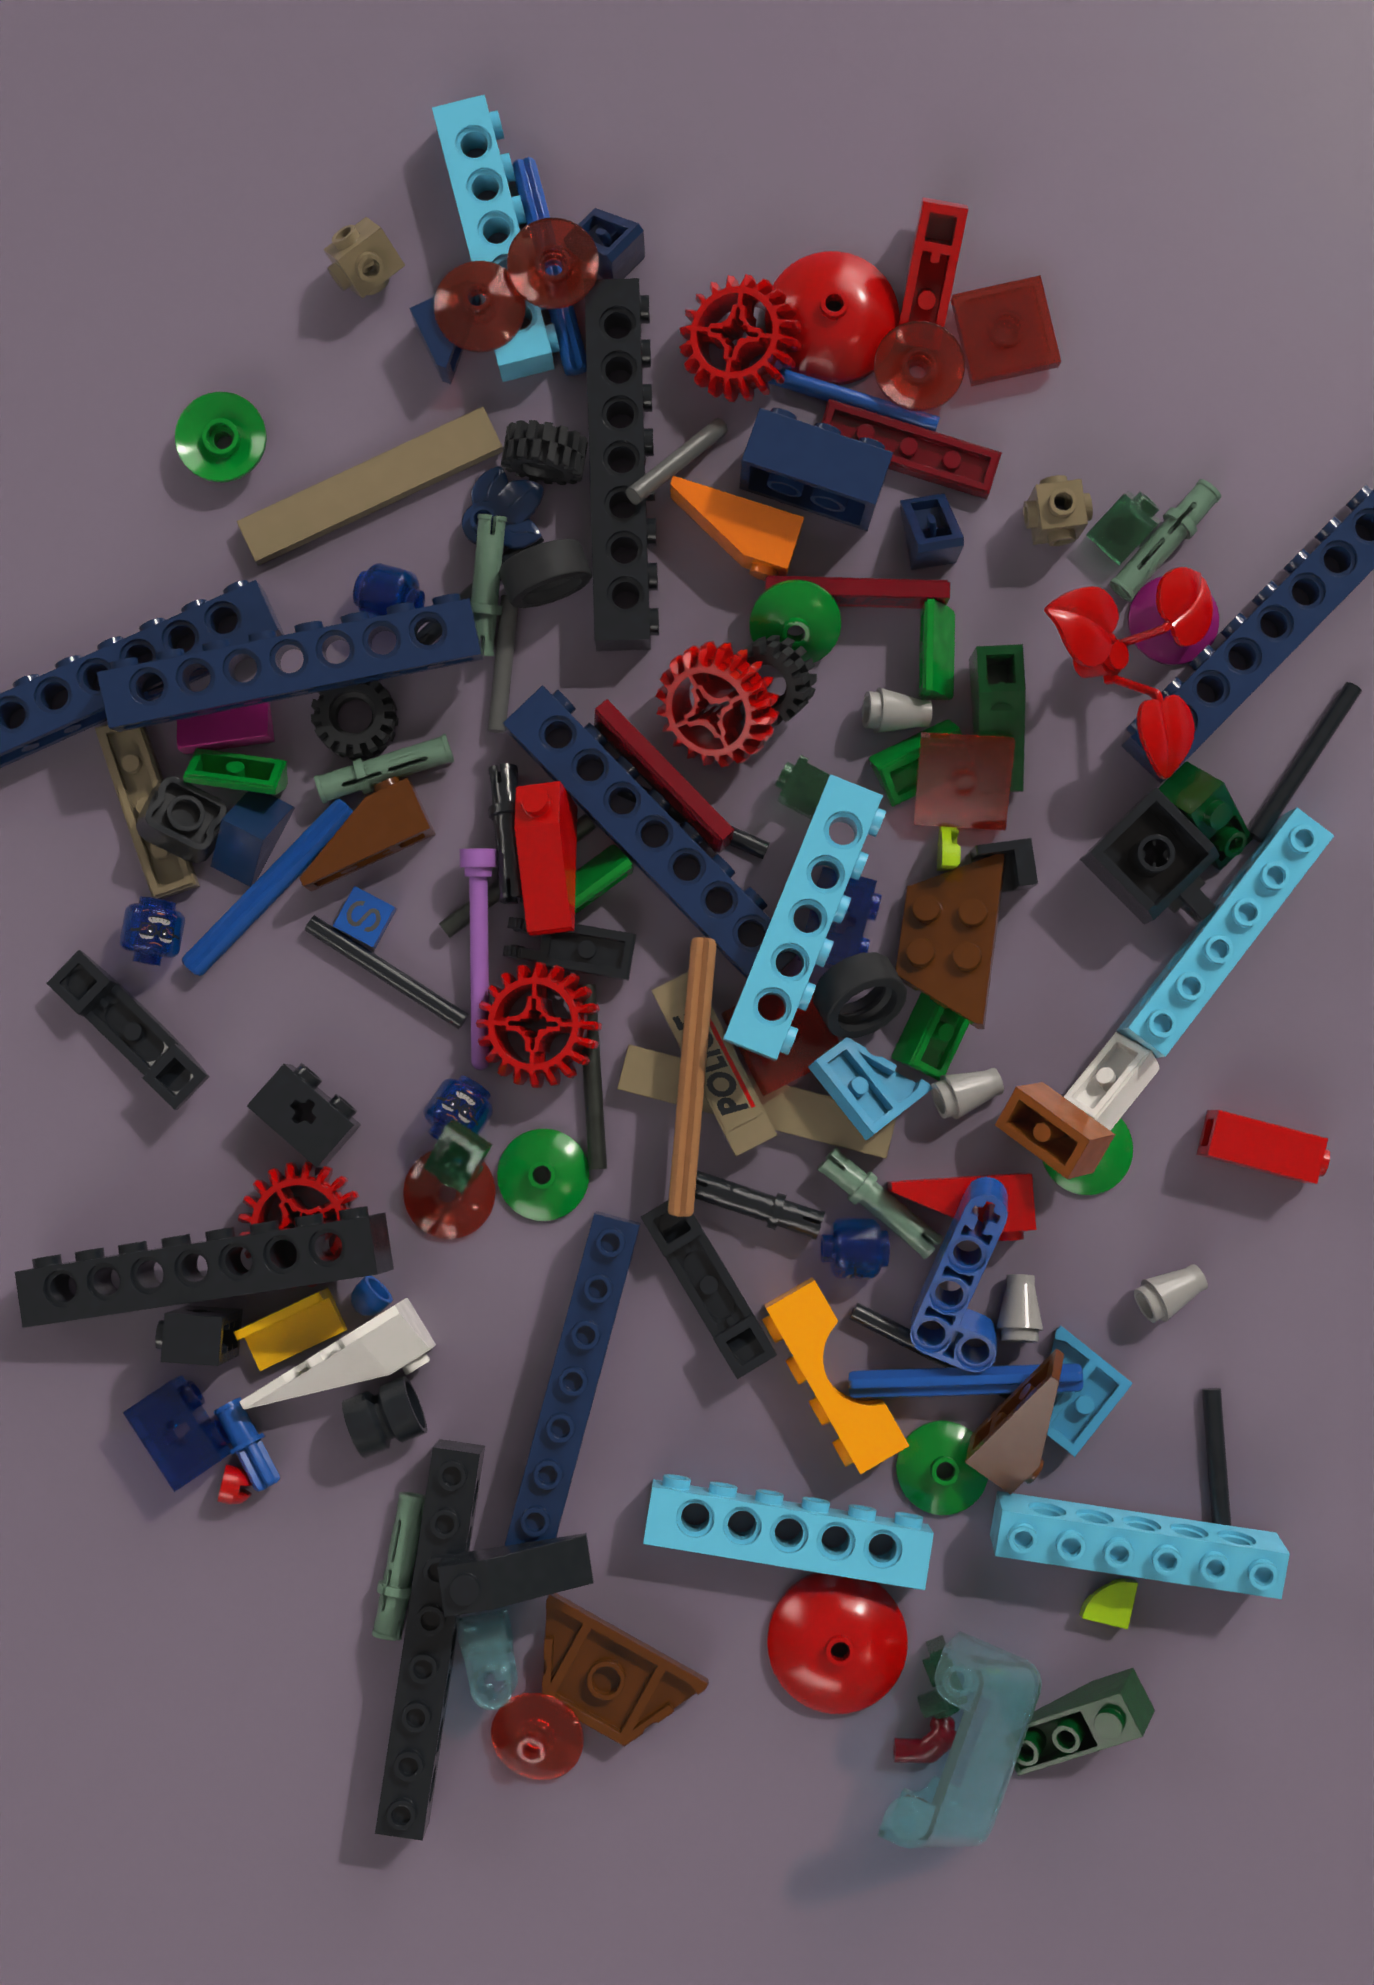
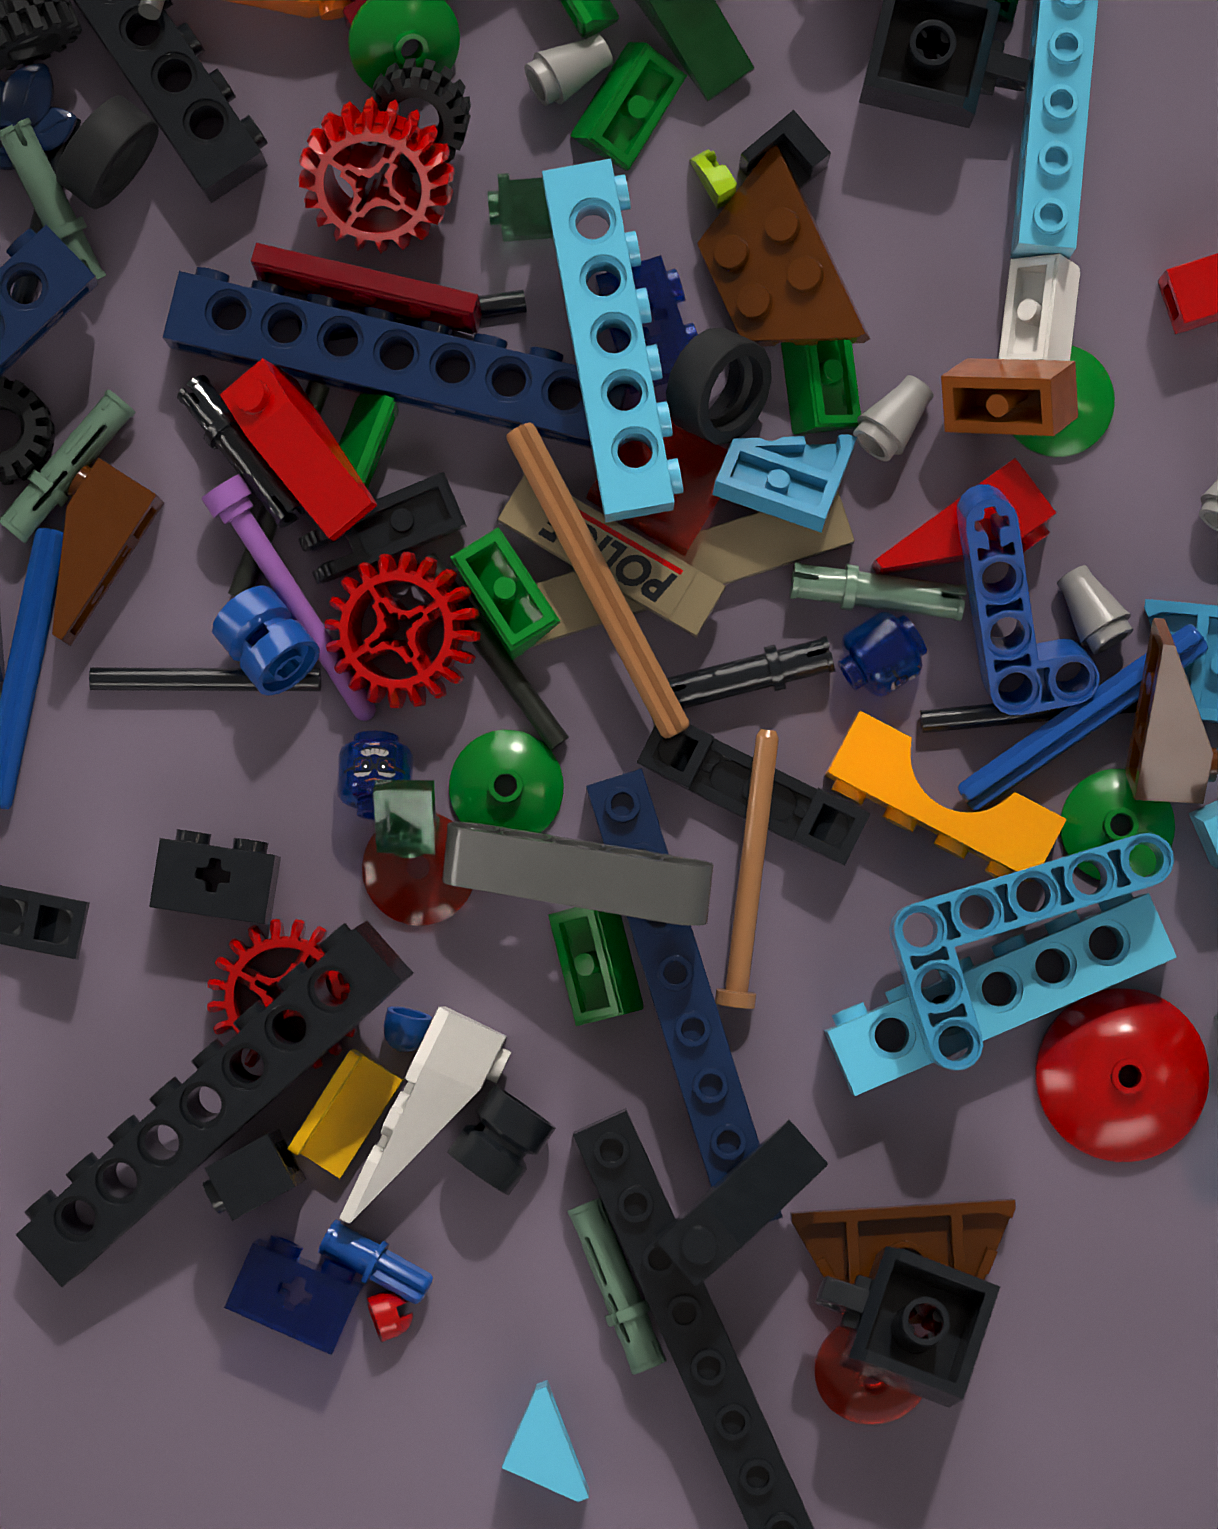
camera: 30 degrees left, 0 degrees up
(279, 1646) = (543, 1448): none -> medium azure slope
(364, 917) = (145, 635): blue tile -> none
(441, 973) = (266, 640): none -> blue wheel
(488, 1650) = (764, 1309): clear light blue piece -> none
(502, 666) = (122, 280): dark grey bar -> none
(528, 1333) = (595, 964): none -> green slope
(550, 1272) = (578, 873): none -> dark grey beam
(557, 1715) = (884, 1343): none -> black hinge
(608, 1417) = (750, 874): none -> medium nougat bar
(625, 1043) = (504, 592): none -> green slope
(822, 1490) = (1004, 915): none -> dark azure beam
(963, 781) = (685, 95): clear red plate -> none

